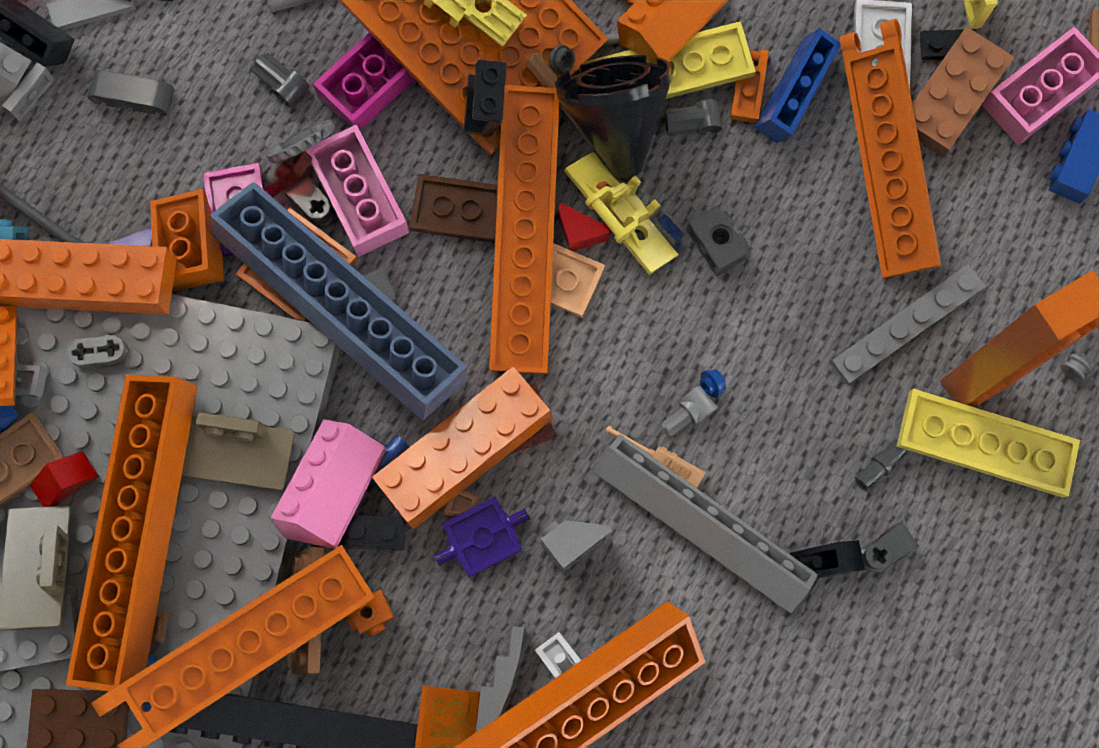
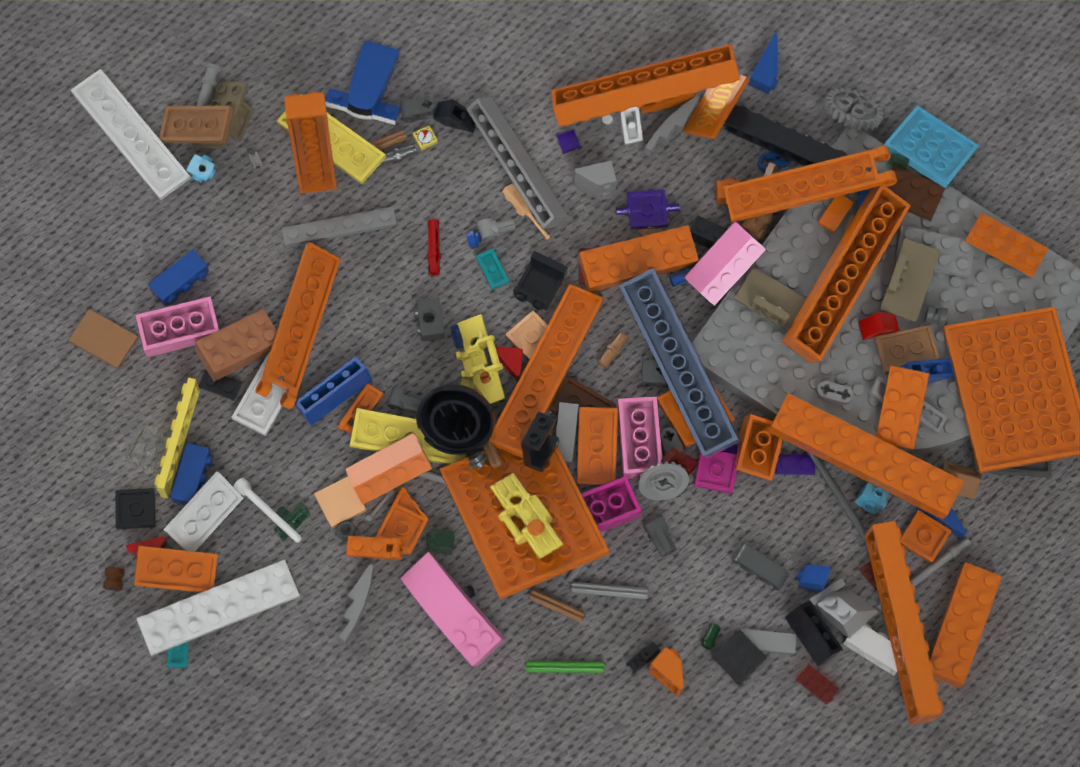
camera: 160 degrees left, 5 degrees down
(48, 99) = (813, 577): none -> blue slope
(188, 624) = (835, 213): none -> orange tile
(321, 691) = (772, 157): none -> blue beam
(412, 160) = (597, 445): none -> orange tile
(446, 304) = (612, 350): none -> medium nougat pin
(462, 162) = (567, 429): none -> light grey tile
(590, 358) = (540, 281): none -> black panel
(644, 597) = (568, 141): none -> dark purple tile
(665, 350) = (492, 269): none -> teal plate
(757, 337) = (433, 247): none -> red pin
(855, 511) = (425, 137): none -> tile
(907, 480) = (389, 140): none -> medium nougat axle
(978, 557) = (369, 85): none -> blue slope

